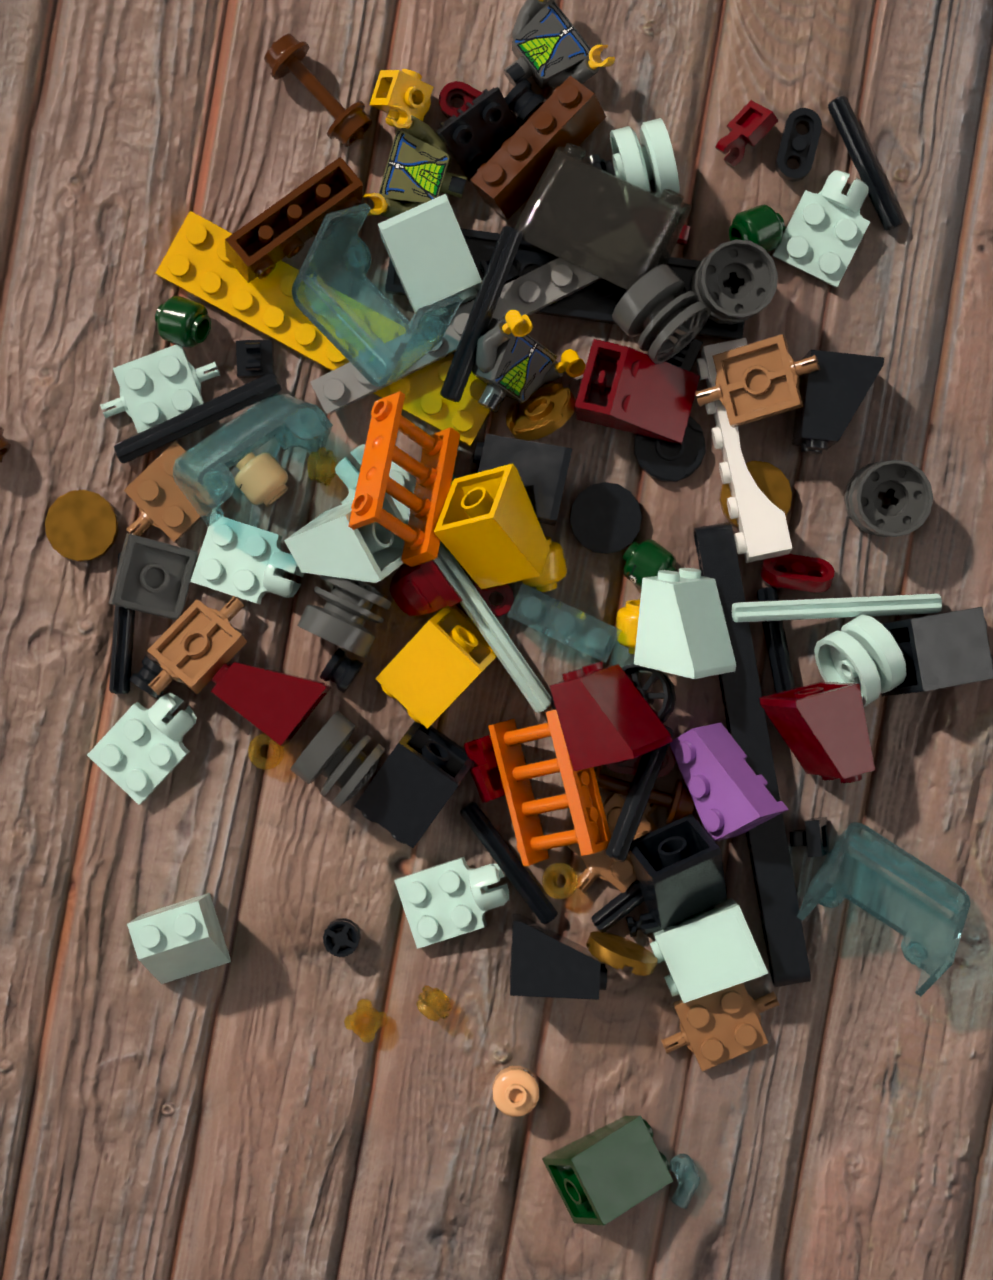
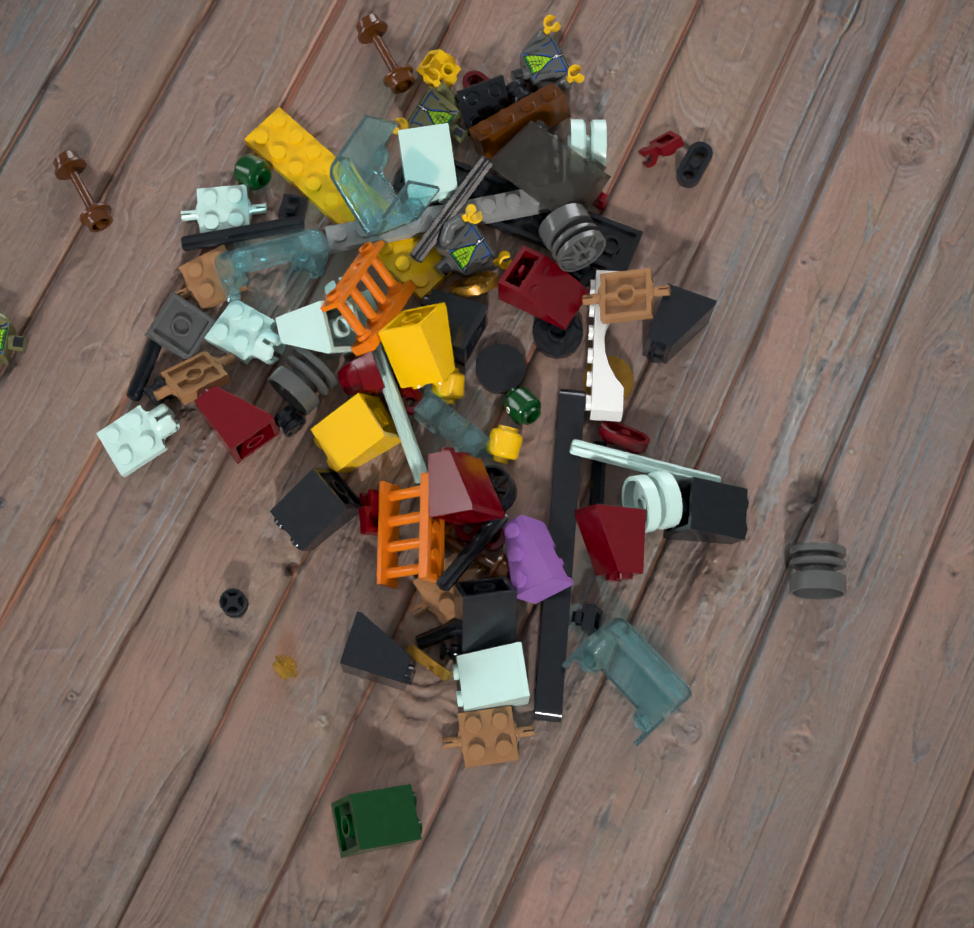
camera: 15 degrees right, 15 degrees down
(81, 525) = (143, 284): pearl gold tile -> none
(179, 939) = (118, 570): light aqua slope -> none
(256, 757) = (218, 456): clear yellow plate -> none
(261, 478) = (273, 282): light nougat head -> none
(292, 220) = (336, 125): reddish brown brick -> none
(322, 466) = (316, 285): clear yellow plate -> none
(338, 759) = (267, 475): dark grey wheel -> none
(355, 1021) = (225, 667): clear yellow plate -> none
(449, 899) = (318, 597): light aqua plate -> none
(509, 863) = (367, 582): black axle -> none
(515, 1091) = (325, 743): light nougat head -> none
(549, 880) = (397, 598): clear yellow plate -> none
(683, 626) = (532, 442): light aqua slope -> none
(687, 1177) = (433, 843): clear light blue arm -> none
(749, 268) = (633, 219): dark grey wheel -> none
(758, 225) = (652, 209): dark green head -> none
(825, 229) = (699, 221): light aqua plate -> none
(865, 162) = (737, 188): black axle -> none
(905, 486) = (700, 385): dark grey wheel -> none

